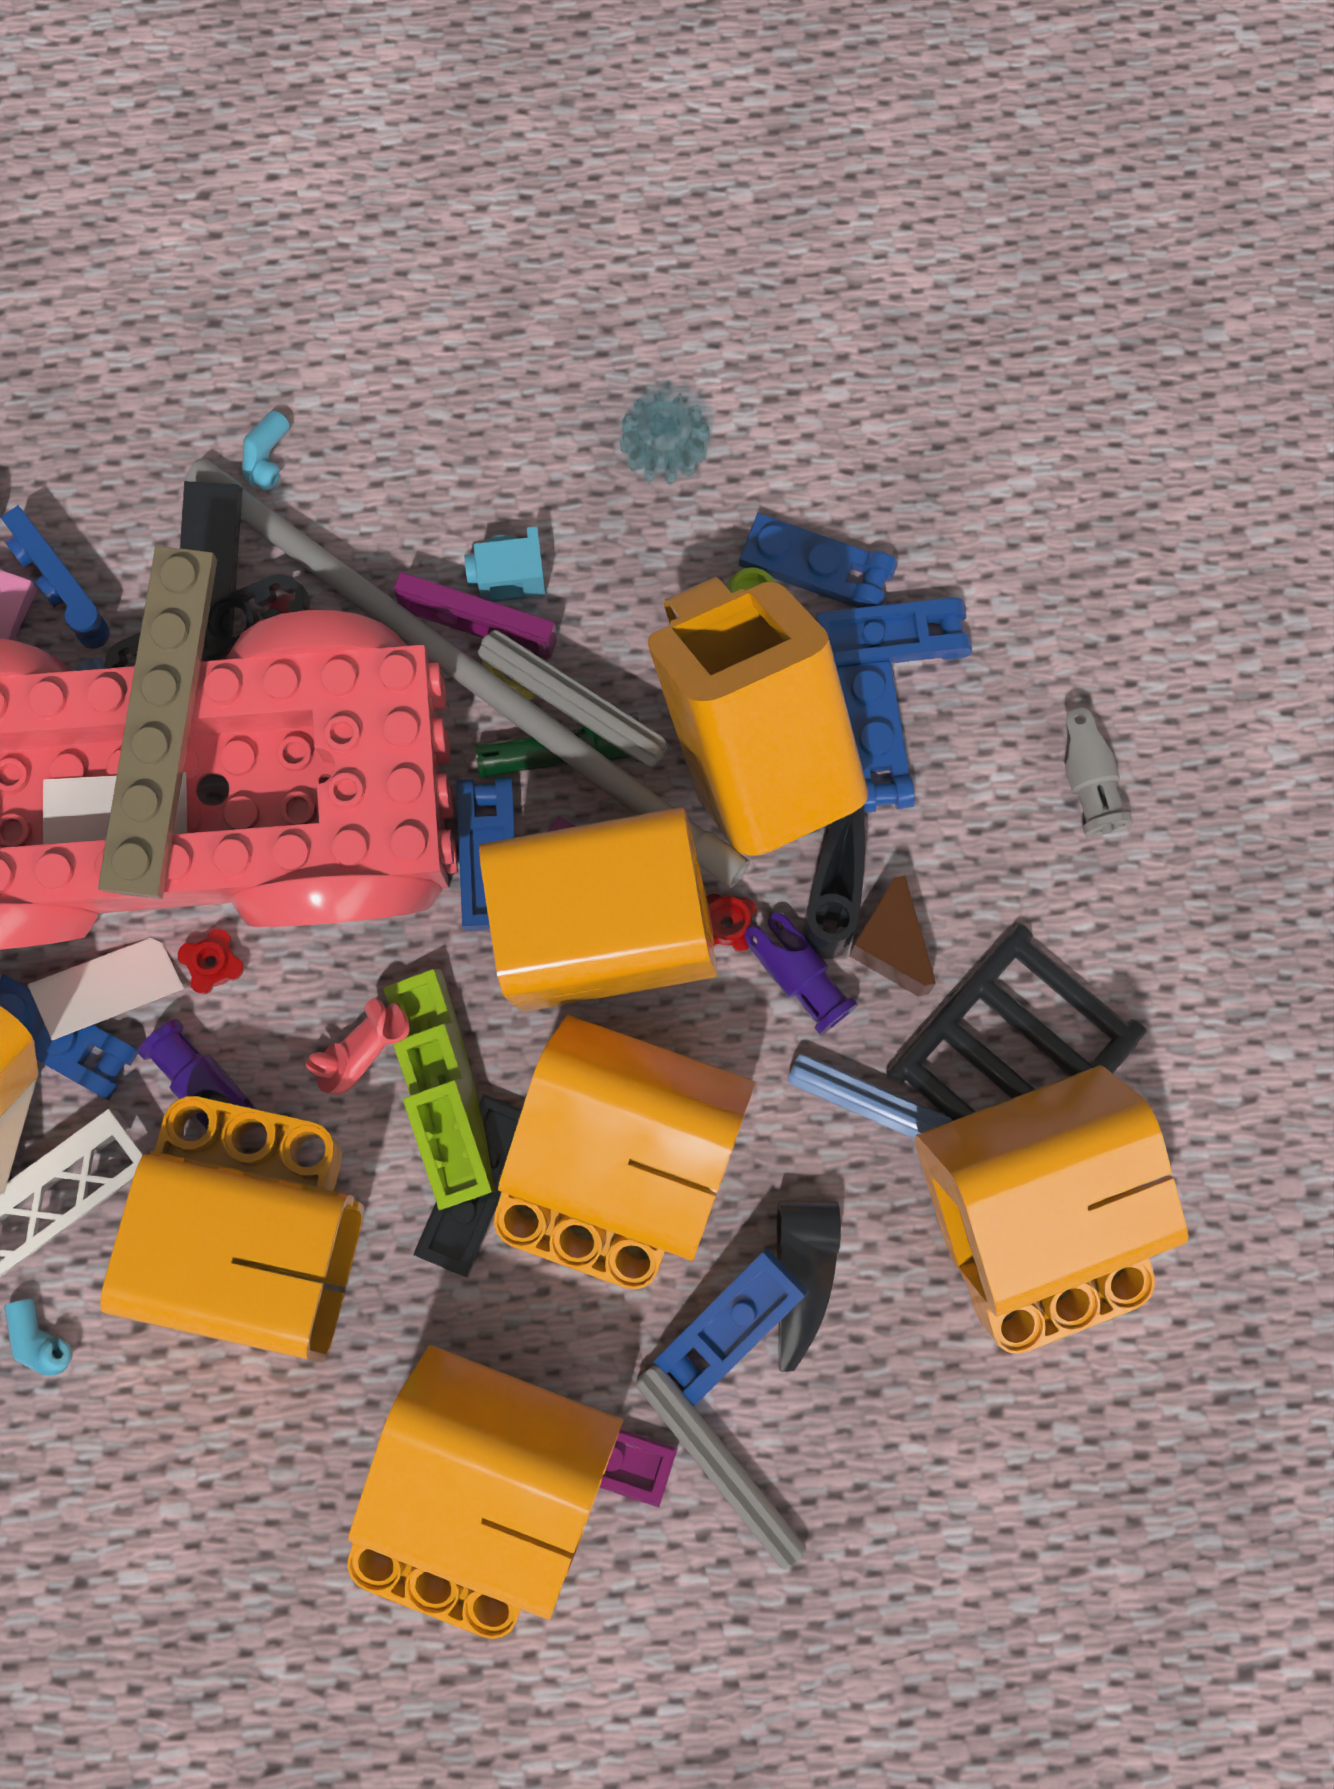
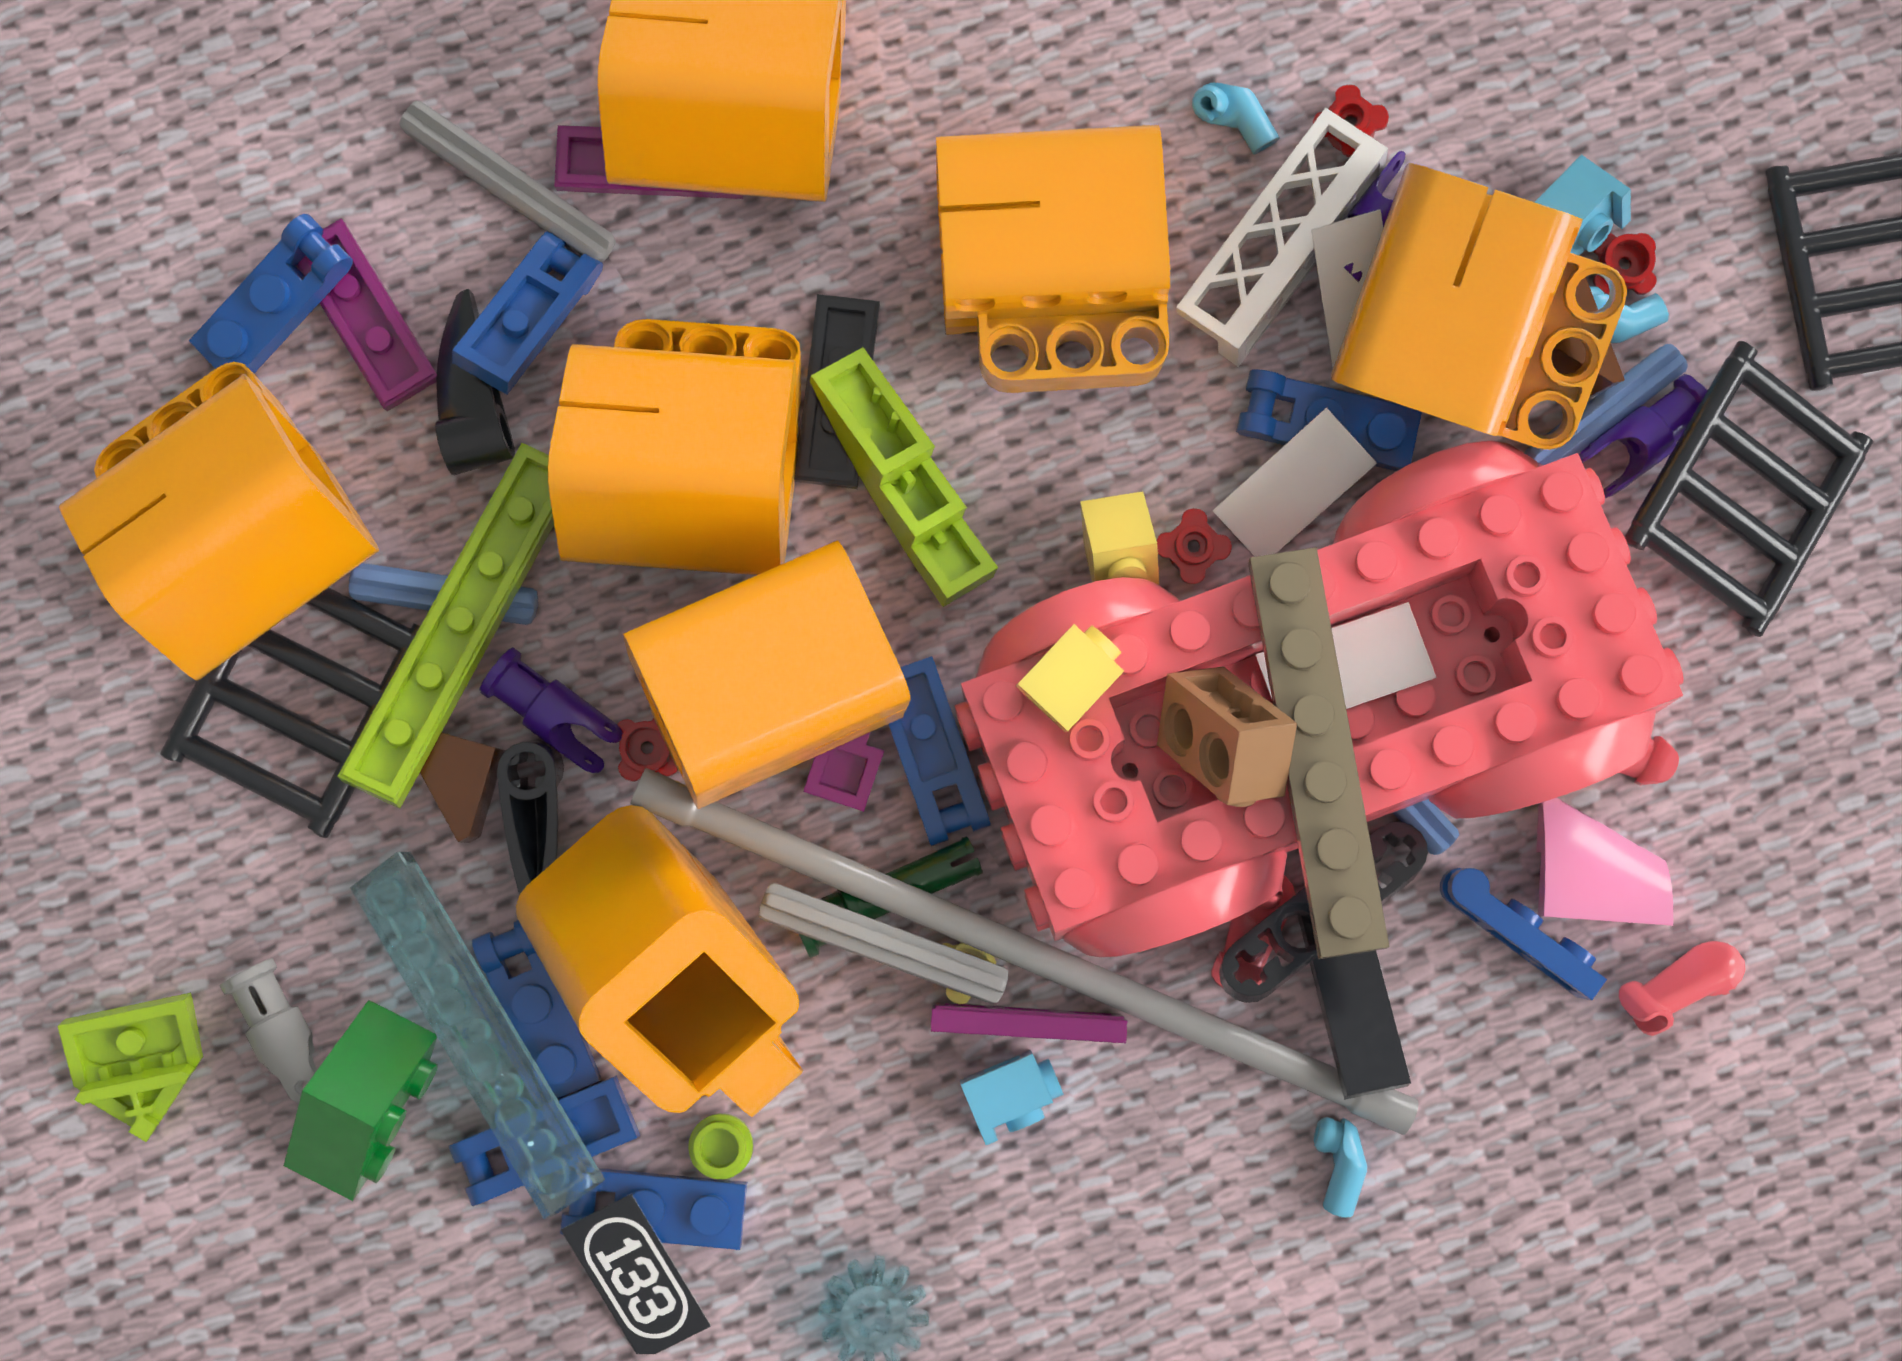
camera: 165 degrees right, 10 degrees up
(189, 1069) = (1166, 419): dark purple piece -> none
(229, 758) = (1226, 735): none -> medium nougat brick
(271, 971) = (1119, 538): none -> light yellow brick
(341, 833) = (1072, 675): none -> light yellow brick
(347, 1061) = (1011, 477): coral piece -> none
(845, 514) = (635, 1277): none -> black sticker
(858, 1061) = (454, 633): none -> lime tile
(882, 1378) = (373, 326): none -> magenta tile
(927, 726) = (477, 1034): none -> clear light blue plate
(963, 1408) = (273, 298): none -> blue plate
(1036, 691) = (357, 1101): none -> green brick
(1217, 789) = (133, 1058): none -> lime slope

